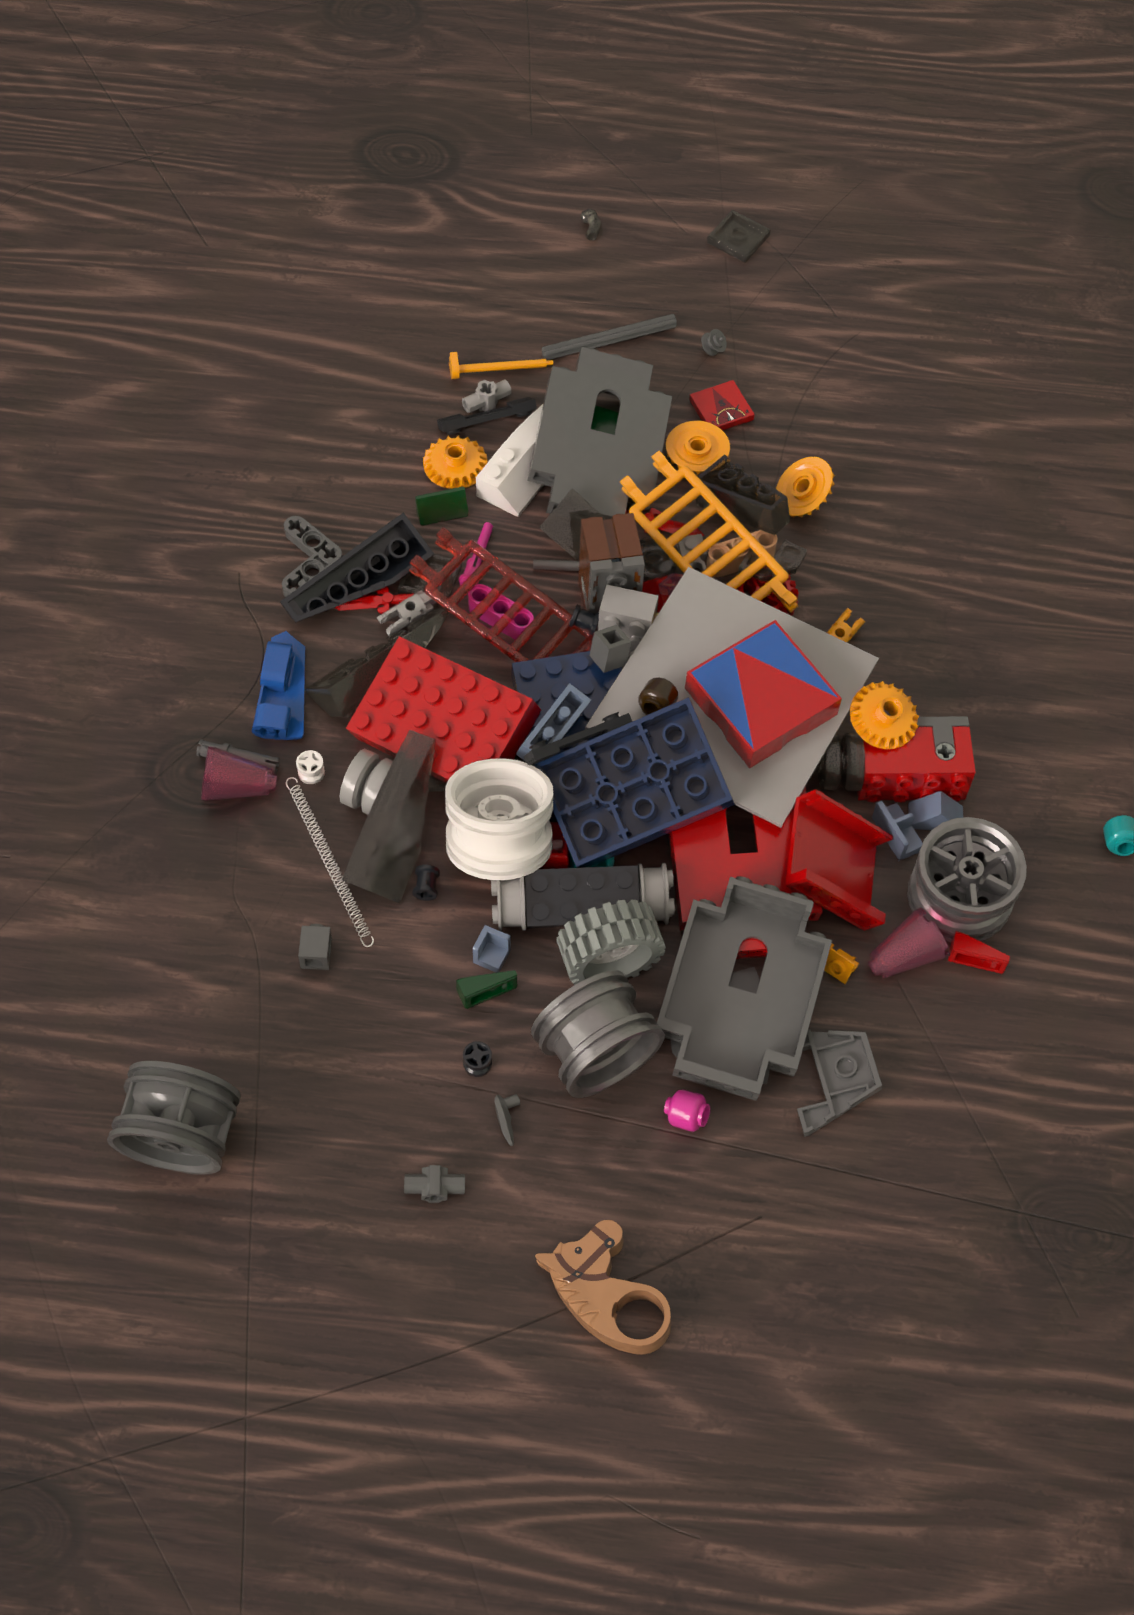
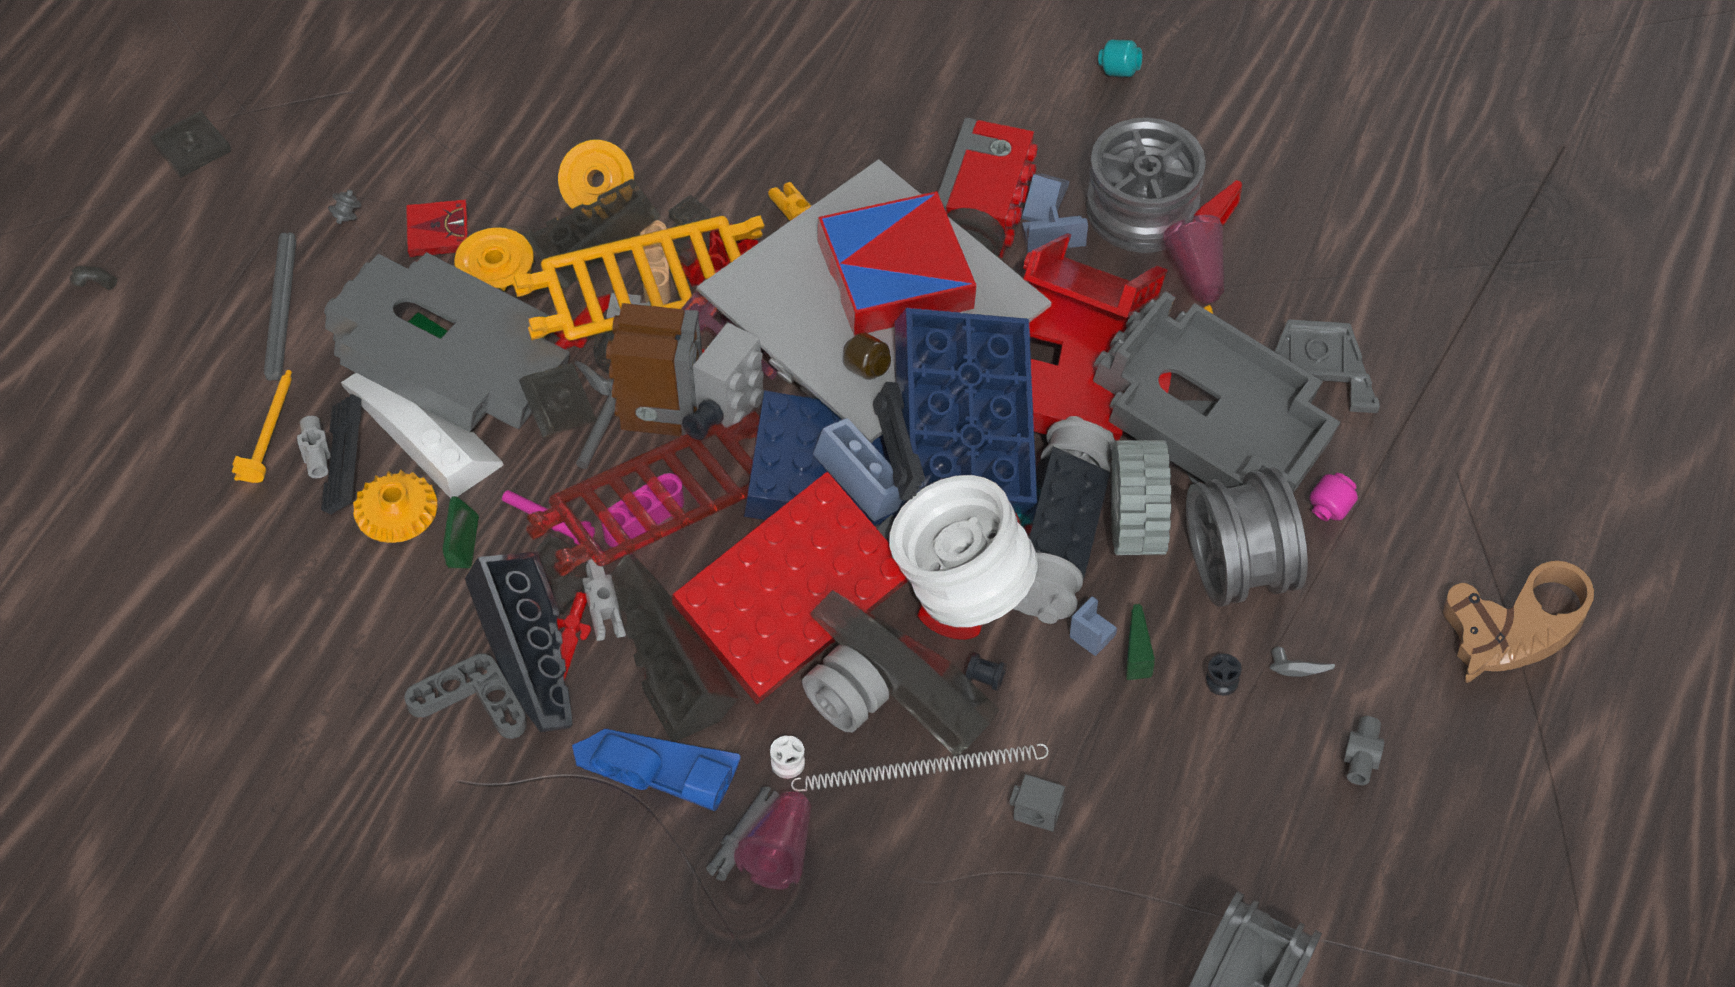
camera: 70 degrees left, 5 degrees down
(610, 648) = (780, 385): dark grey brick -> none
(874, 724) = (950, 175): light orange gear -> none

